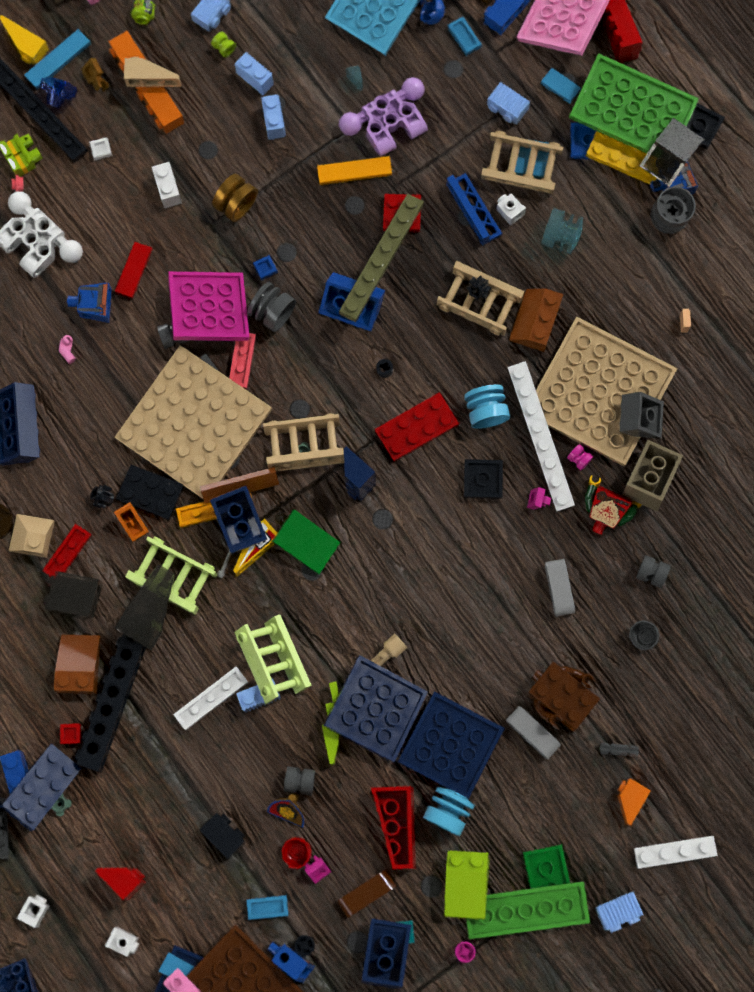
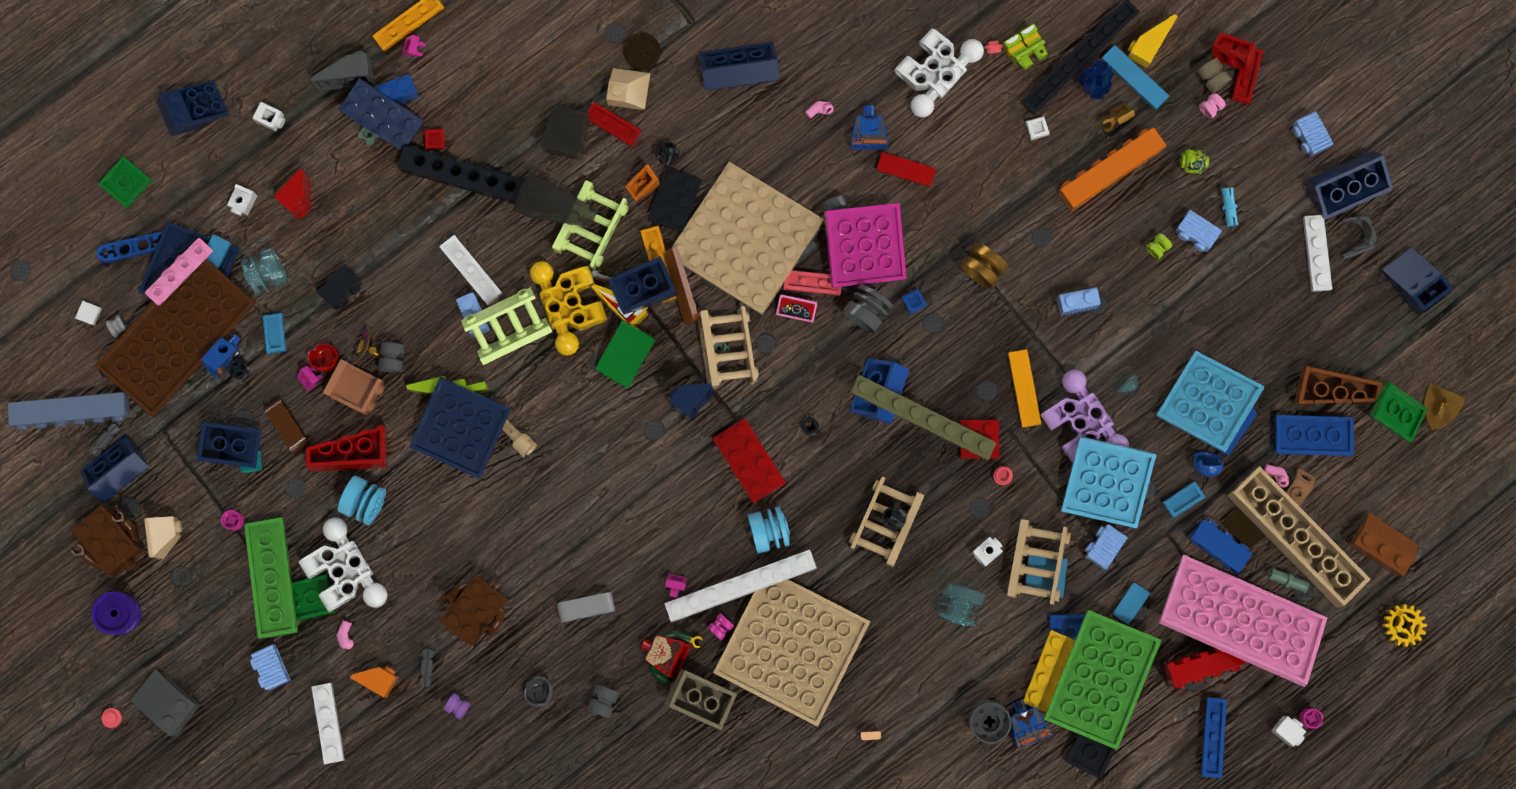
camera: 85 degrees right, 5 degrees up
(77, 664) = (501, 141): dark orange slope -> none
(143, 73) = (1116, 160): tan slope -> none
(166, 185) = (998, 196): white brick -> none
(201, 914) = (264, 271): none -> clear light blue wheel
(254, 73) = (1126, 279): light blue brick -> none
(266, 377) = (796, 308): none -> slope
(291, 600) = (580, 279): none -> yellow connector
(329, 820) = (354, 387): none -> nougat panel
(437, 192) = (1003, 475): none -> coral plate
(447, 96) = (1108, 482): none -> medium azure plate
(451, 745) = (428, 502): dark blue plate -> none
(466, 884) = (292, 519): lime slope -> none
(470, 211) = (987, 505): blue fence -> none
(483, 479) = (695, 528): black plate -> none
(533, 732) = (441, 582): light grey beam -> none
(536, 318) = (867, 580): dark orange slope -> none
(544, 801) = (314, 564): none -> white connector
(587, 835) = (342, 635): none -> bright pink arm
(641, 415) = (762, 688): dark grey slope -> none
(658, 717) = (458, 707): none -> medium lavender wheel
(671, 152) = (1050, 718): clear smoke slope -> none
(685, 20) = (1213, 737): none -> blue plate

